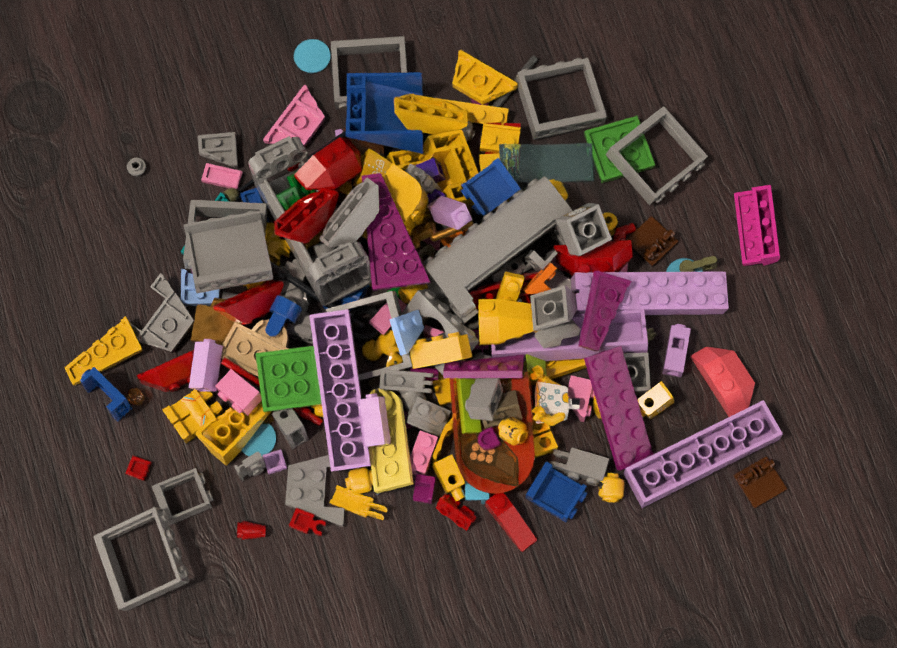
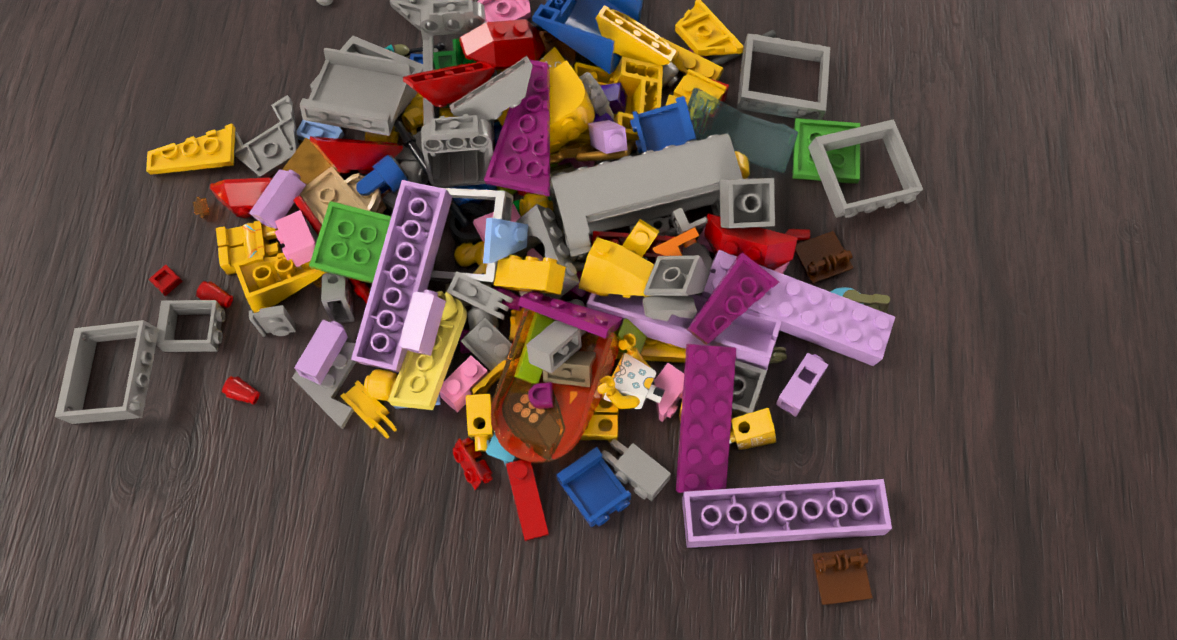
camera: 25 degrees right, 5 degrees down
(119, 406) = (175, 203): blue panel -> none
(185, 463) = (211, 291): none -> red cone
(221, 176) = (401, 32): bright pink tile -> none
(262, 441) = (303, 302): medium azure piece -> none
(274, 462) = (305, 329): lavender tile -> none
(302, 474) = (321, 351): none -> lavender brick
(303, 521) = (302, 405): red plate -> none
(424, 488) = (449, 423): magenta panel -> none
(513, 431) = (571, 395): yellow head -> none
(609, 217) = (783, 220): yellow brick -> none
(611, 488) = (660, 509): yellow head -> none
(725, 378) = (848, 437): coral wedge -> none
(757, 226) = (951, 284): dark pink brick -> none

